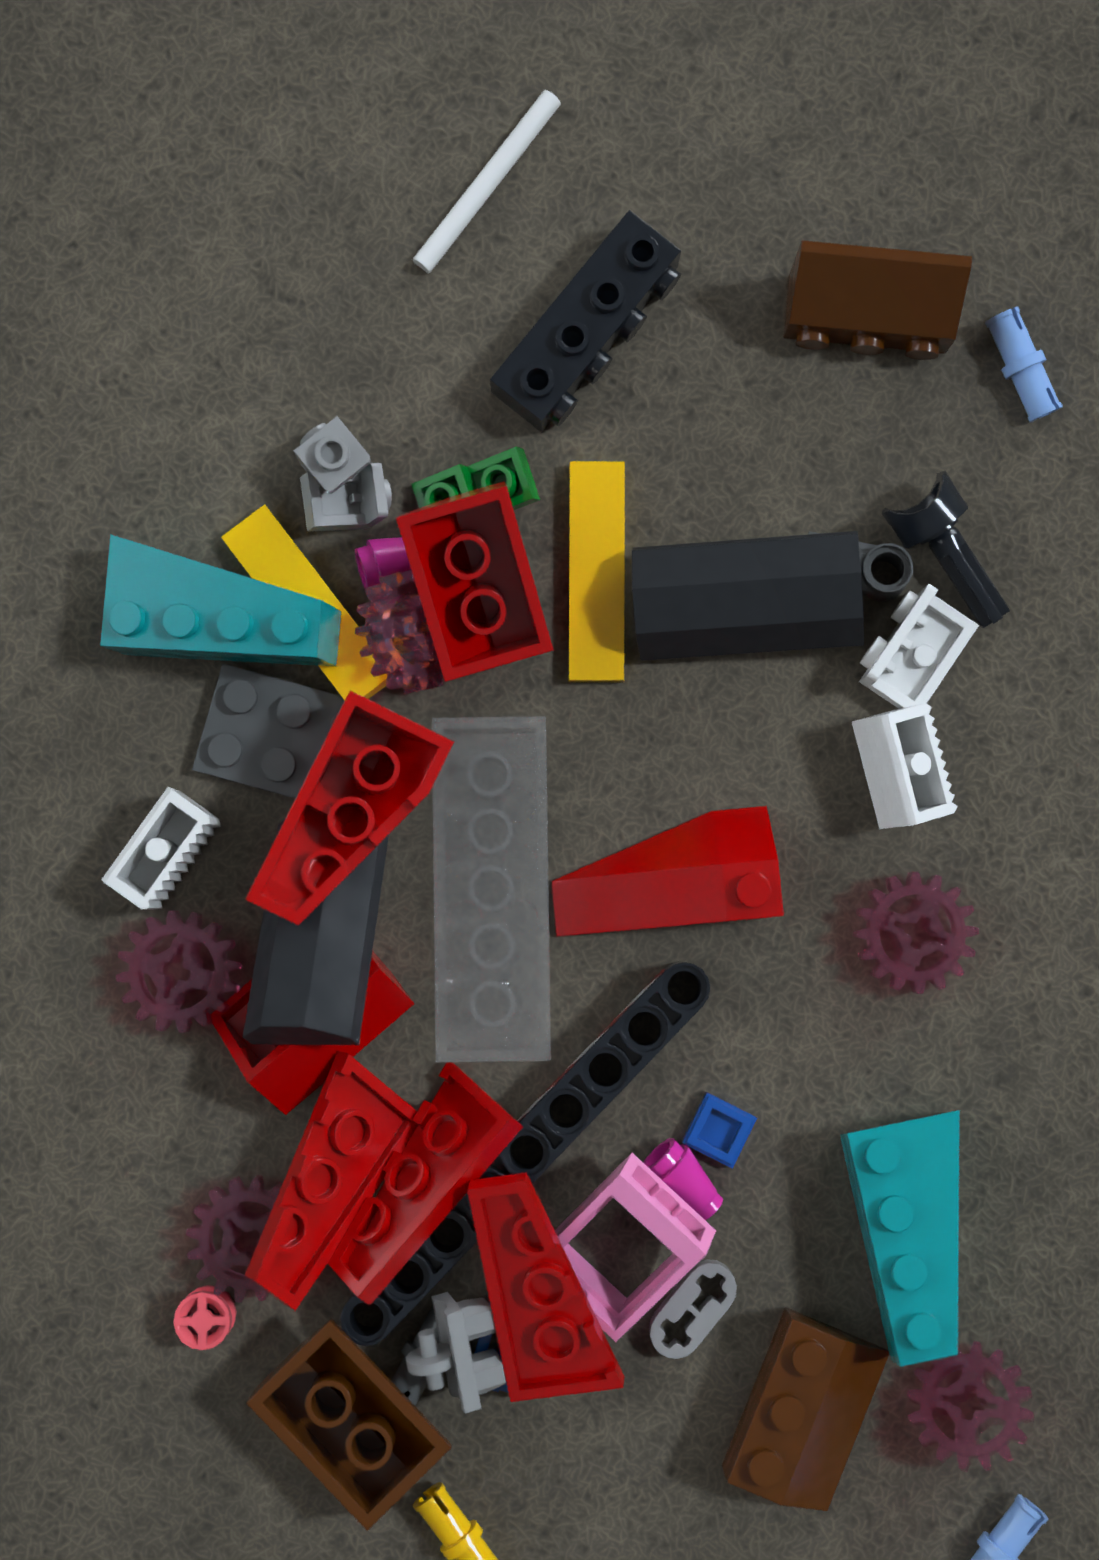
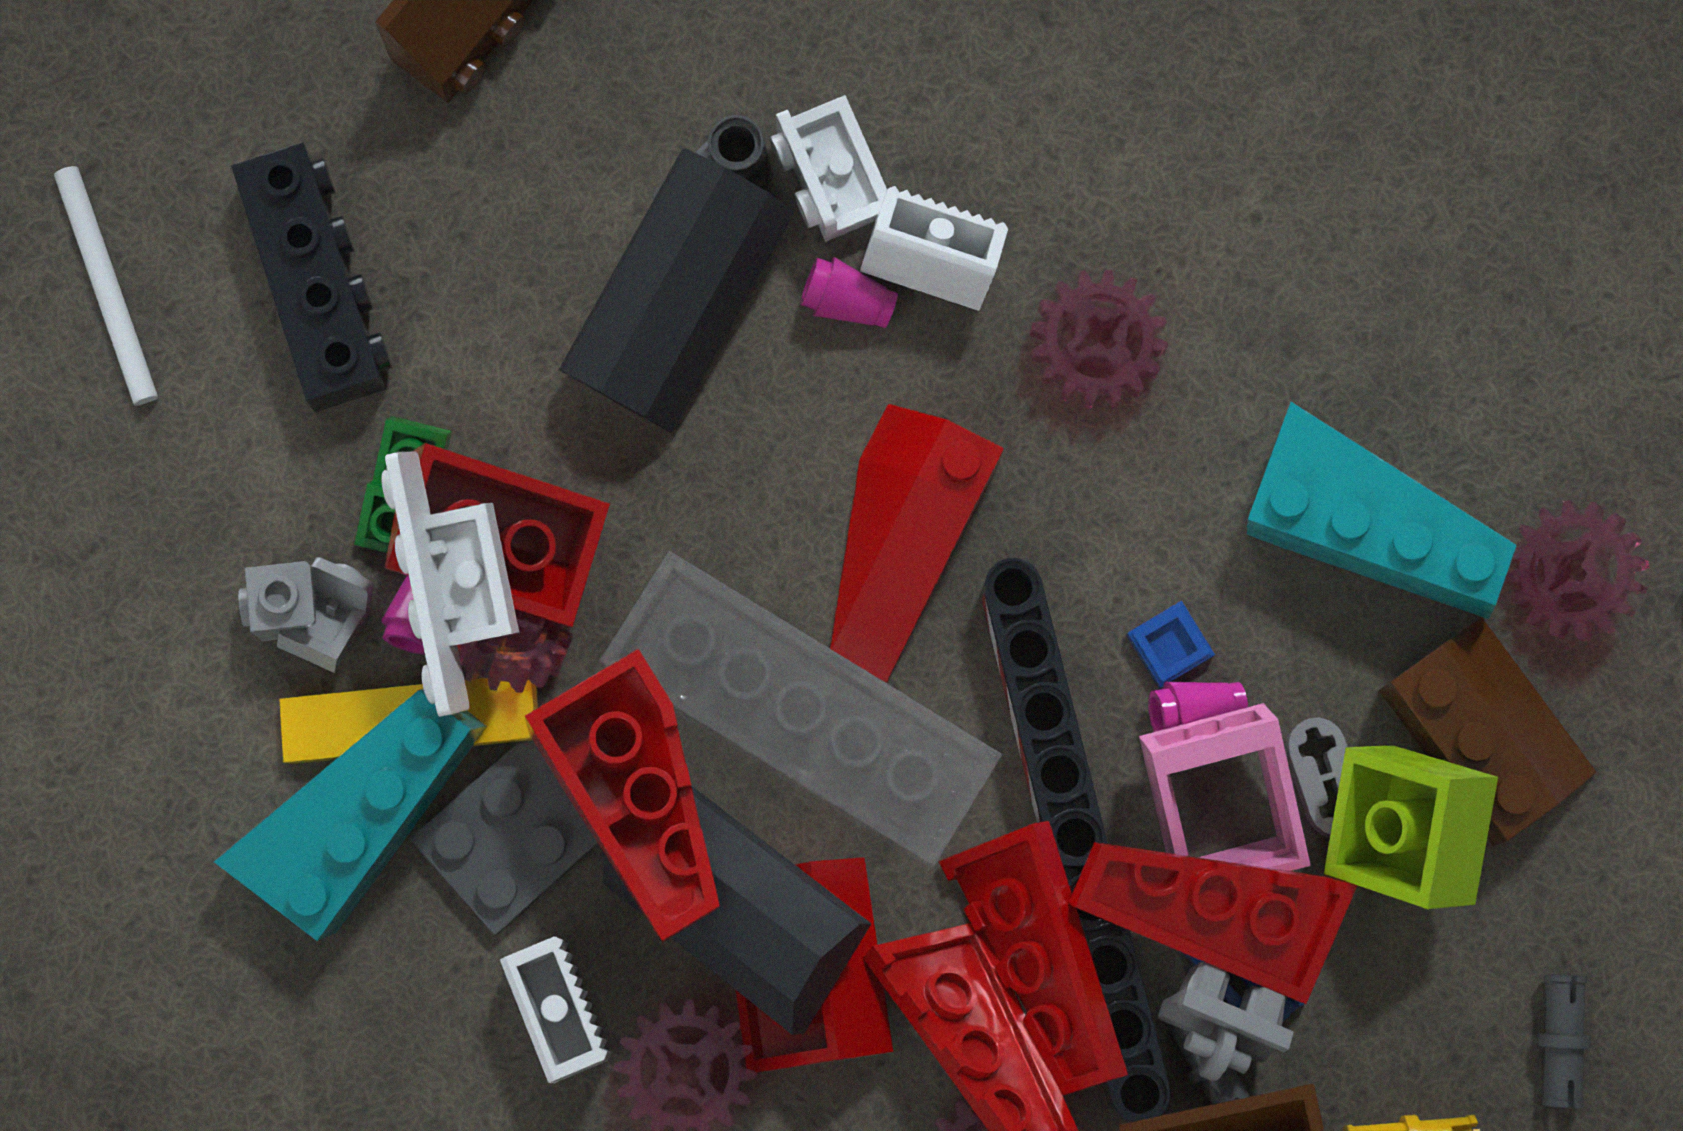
camera: 60 degrees left, 5 degrees down
(417, 571) = (453, 575): none -> white bracket
(596, 571) = (557, 421): yellow tile -> none
(691, 1403) = (1410, 826): none -> lime brick
(827, 721) = (846, 294): none -> dark pink cone
(933, 523) = (719, 75): black piece -> none

